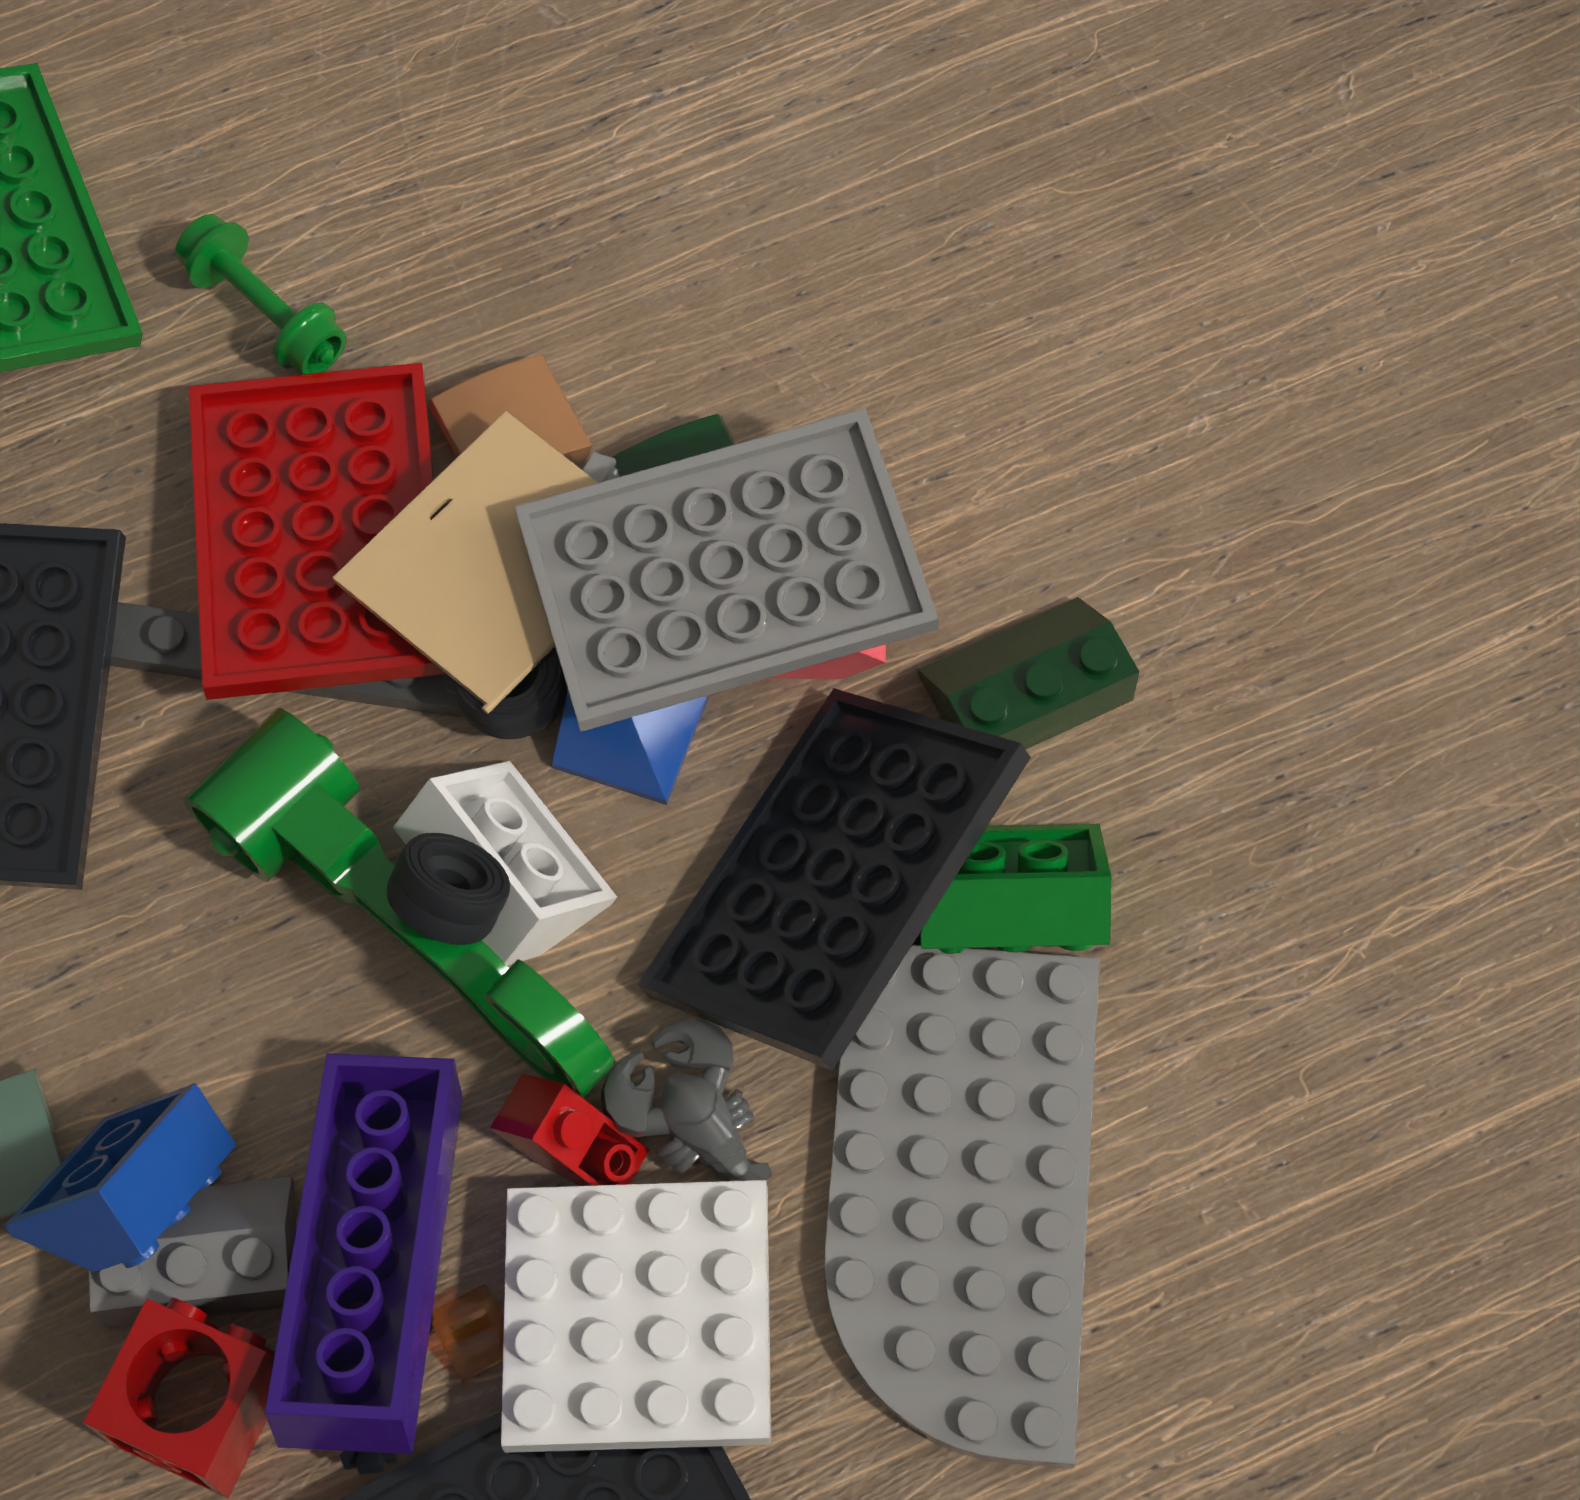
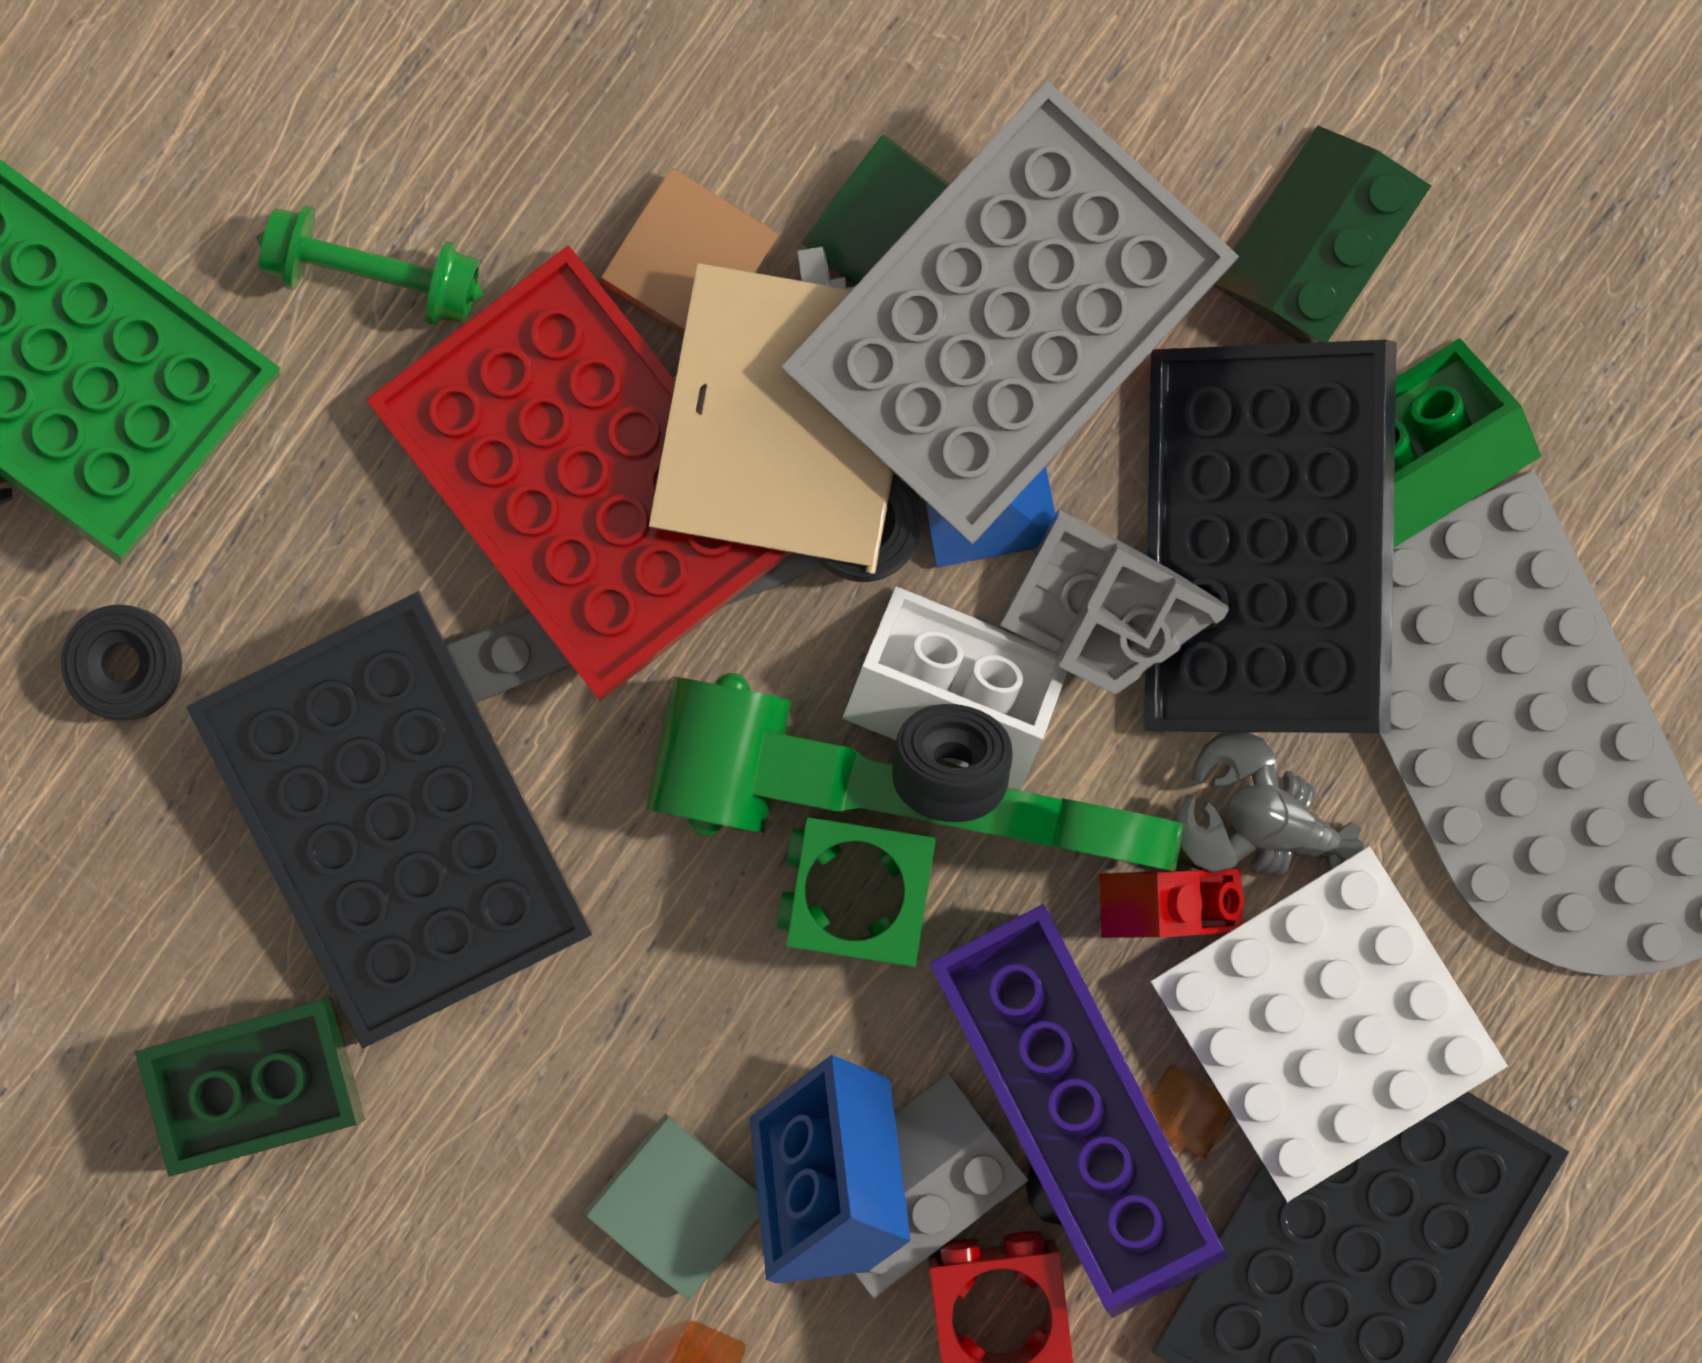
camera: 30 degrees left, 20 degrees up
(338, 1010) = (891, 940): none -> green brick
(665, 858) = (1105, 605): none -> light grey slope

